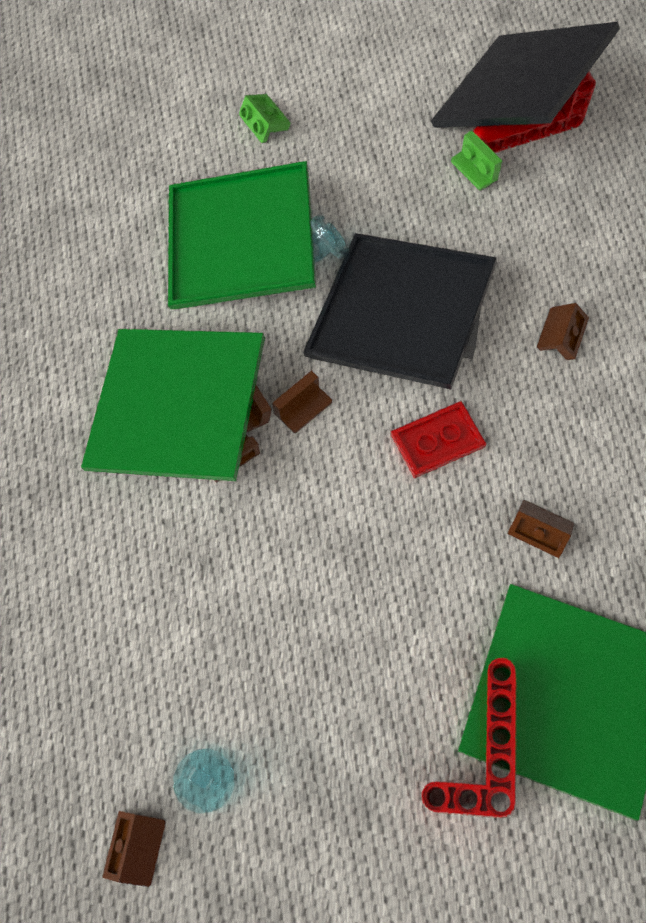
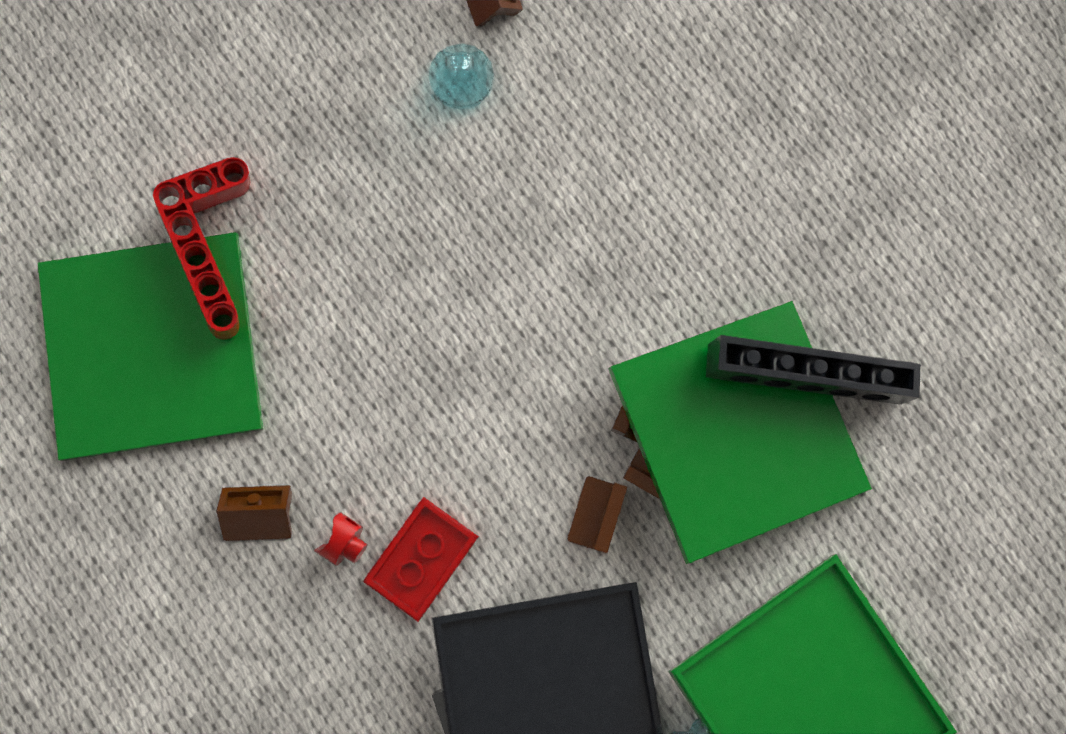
camera: 150 degrees right, 15 degrees up
(103, 406) = (812, 370): none -> black brick
(488, 471) = (343, 541): none -> red piece

